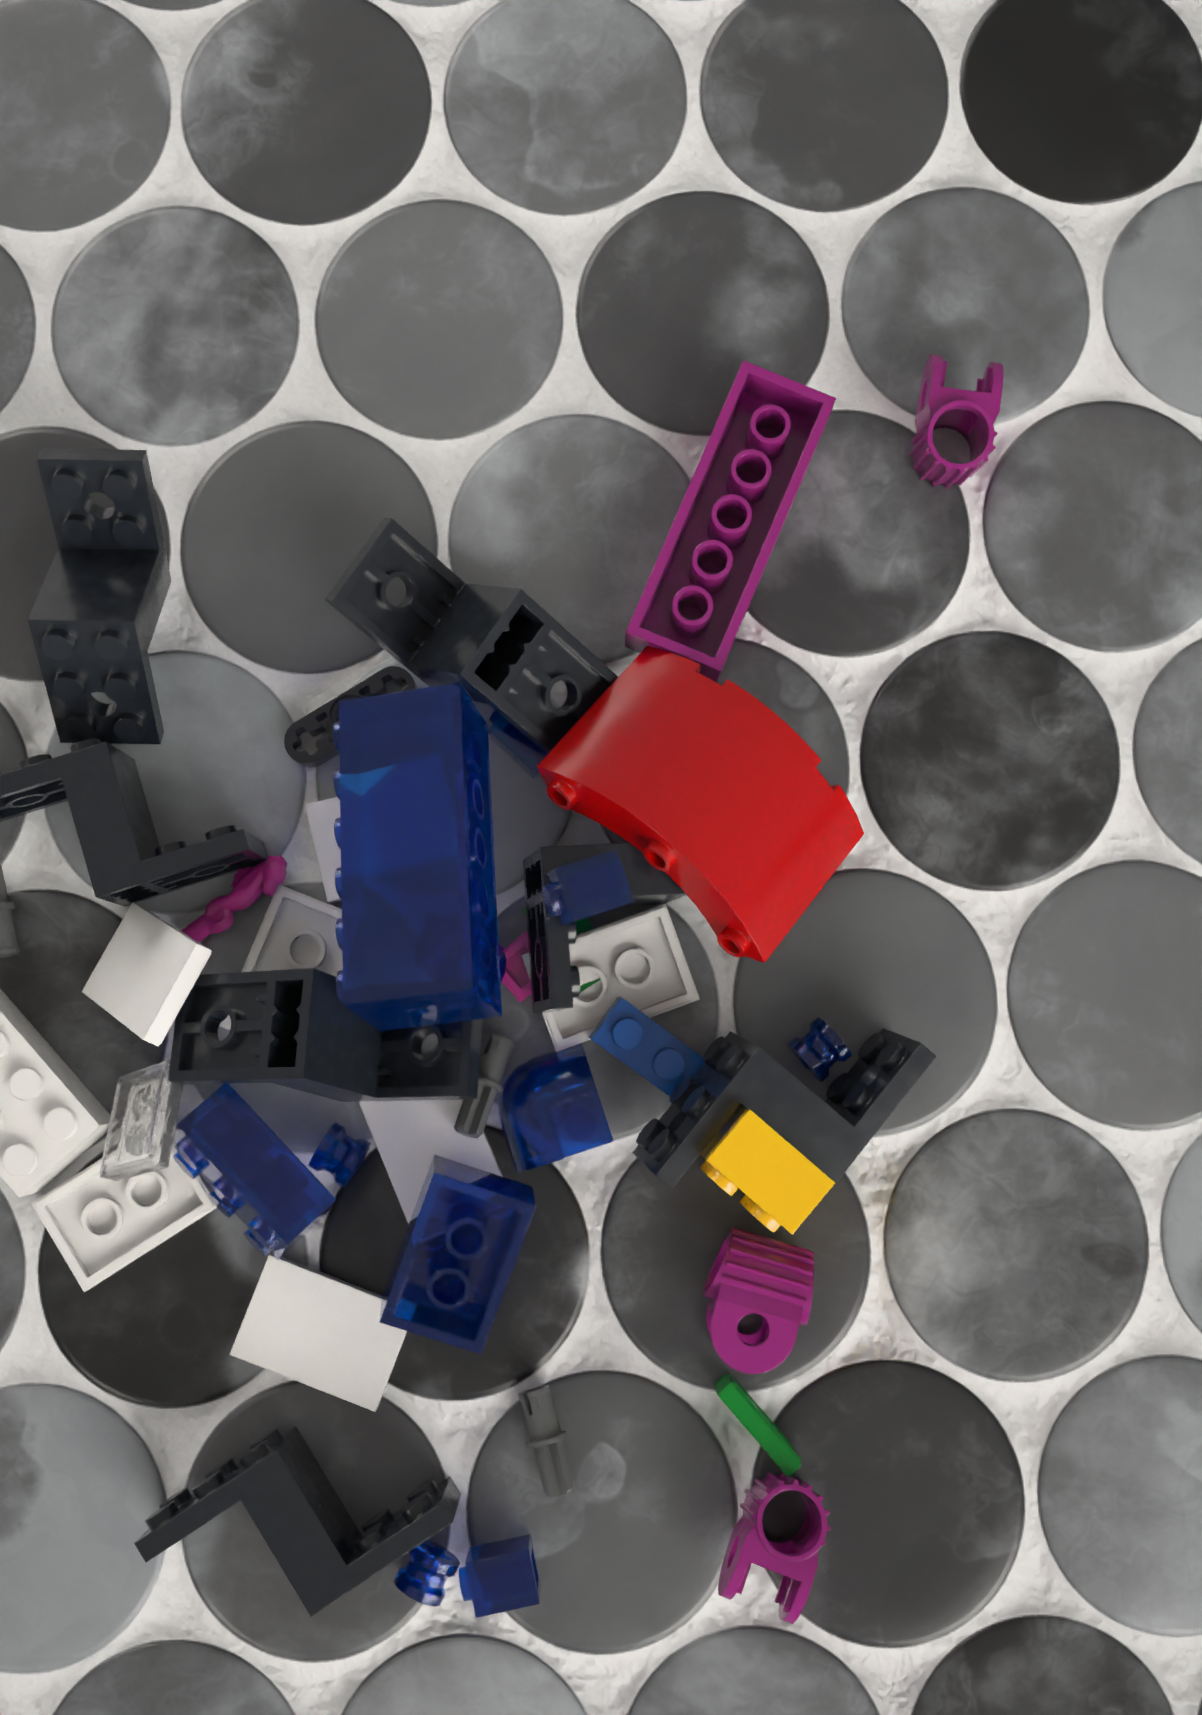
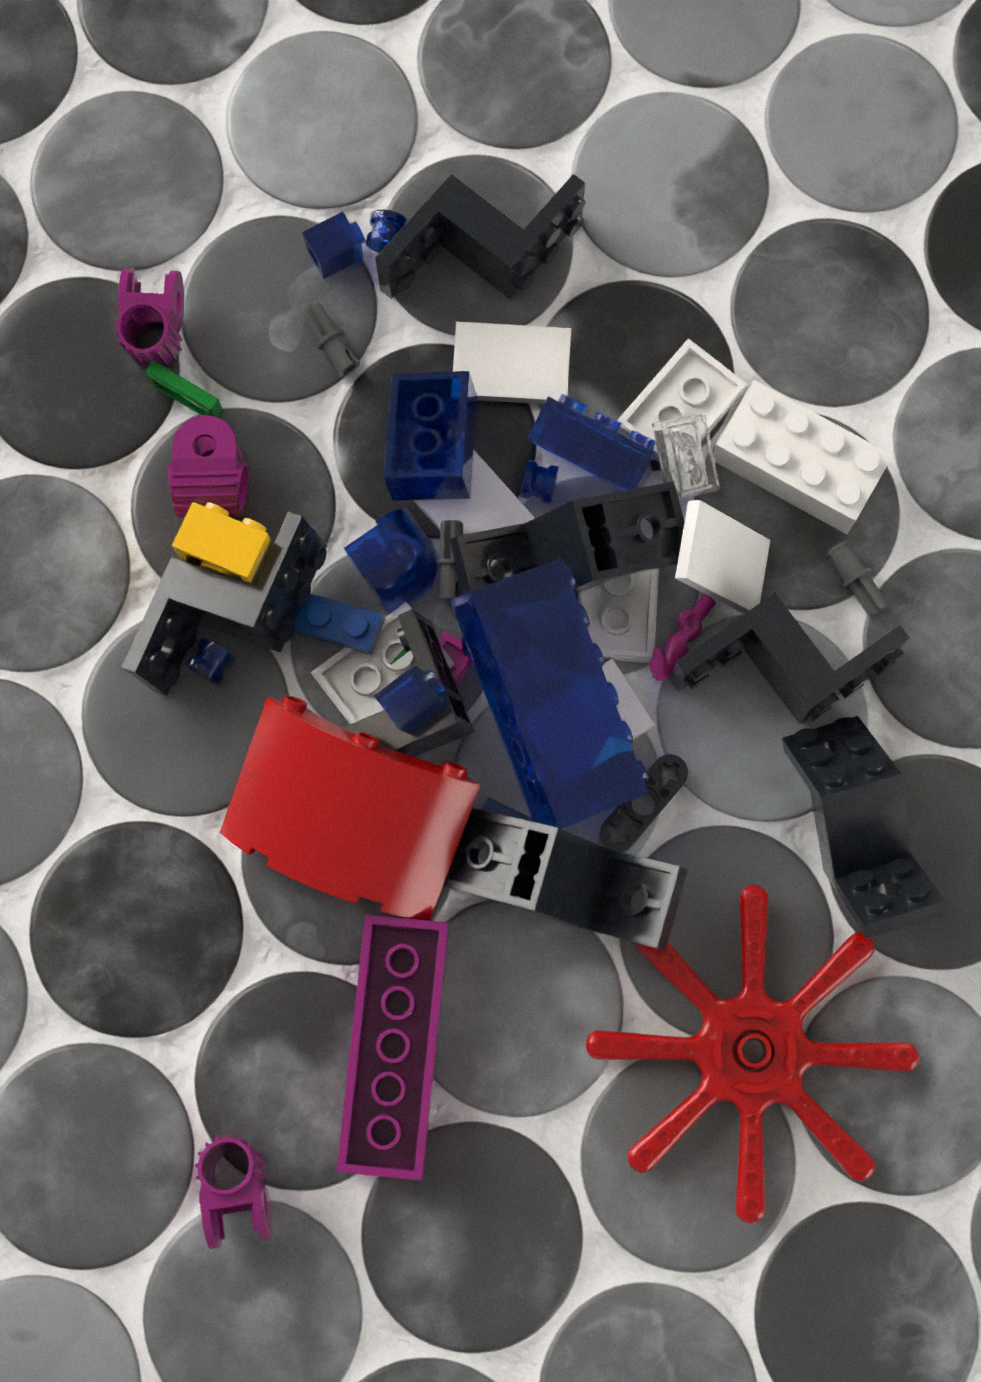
camera: 165 degrees right, 5 degrees down
(319, 365) = (759, 1084): none -> red animal

